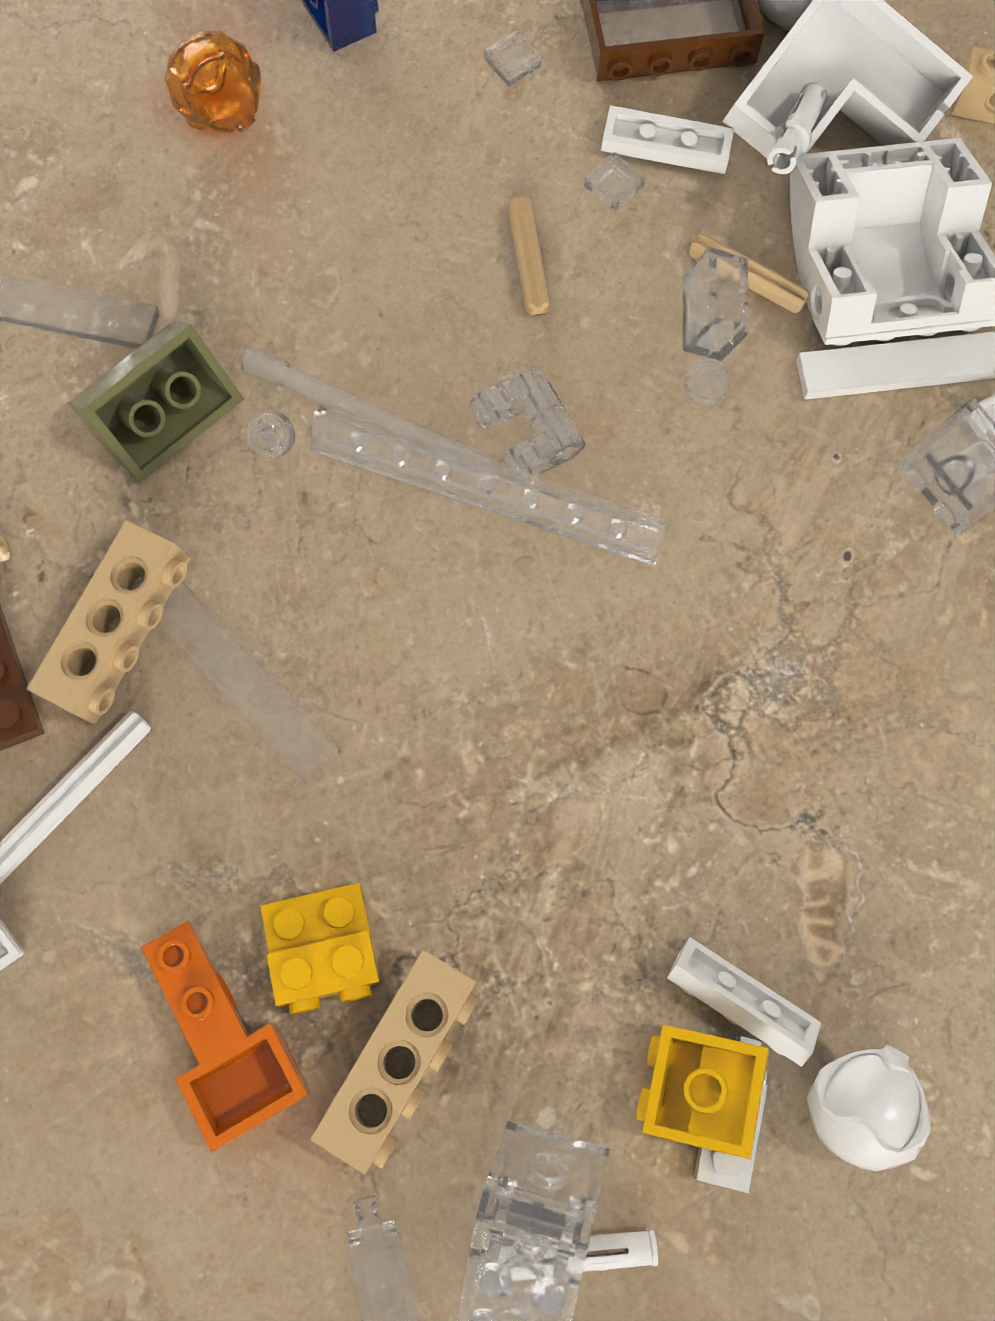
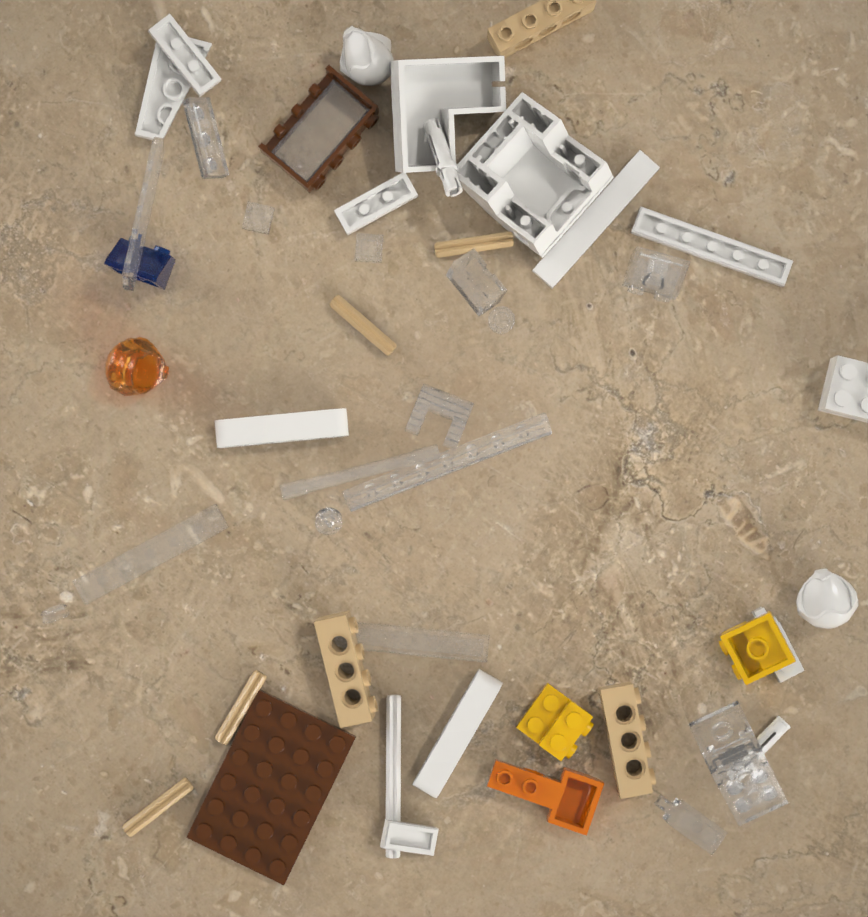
camera: 30 degrees left, 15 degrees up
(157, 399) = (262, 550): olive slope -> none
(172, 842) = (457, 733): none -> white beam
(320, 285) = (281, 428): none -> white beam
(745, 1001) = (744, 596): white plate -> none

